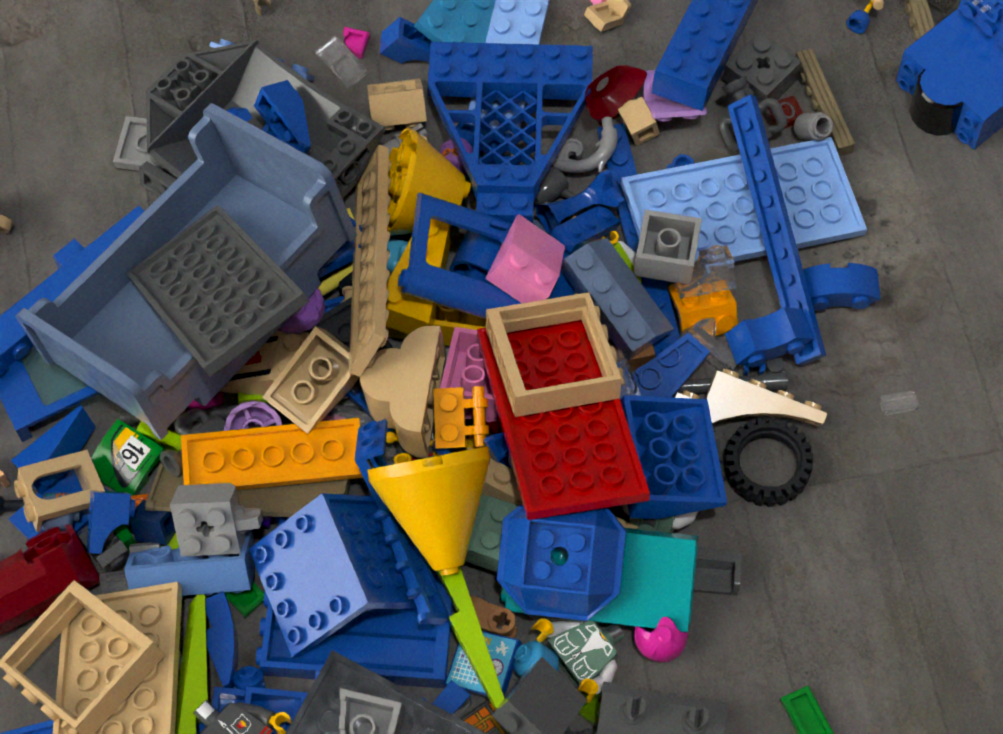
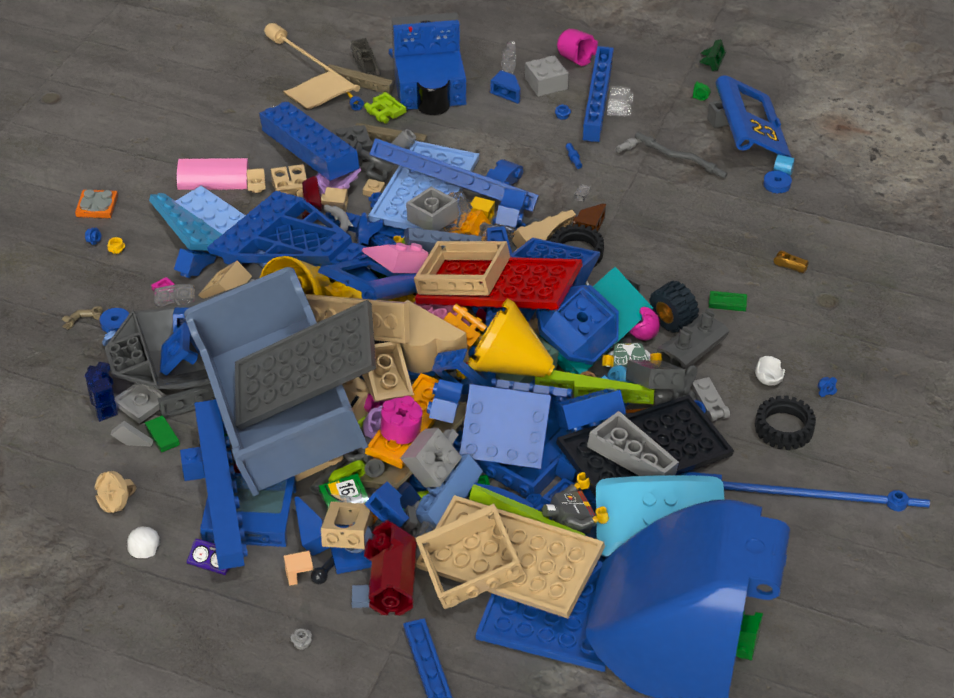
camera: 60 degrees left, 20 degrees down
(83, 174) = (130, 435): none -> light grey tile
(112, 200) = (162, 433): none -> green tile
(121, 95) = (101, 390): none -> clear blue hips
(234, 432) = (401, 420): none -> dark pink brick
(263, 21) = (113, 319): none -> blue piece
(302, 481) = (445, 401): none -> blue brick
(413, 659) = (589, 409): none -> blue brick
(630, 47) = (291, 187): none -> tan hips
(705, 147) = (373, 186): none -> tan plate
(715, 657) = (674, 306): none -> black wheel
(752, 298) = (485, 205): none -> yellow brick
(836, 448) = (591, 217): none -> reddish brown slope
(885, 60) = (388, 105): none -> lime plate
(965, 348) = (573, 156): none -> blue bar

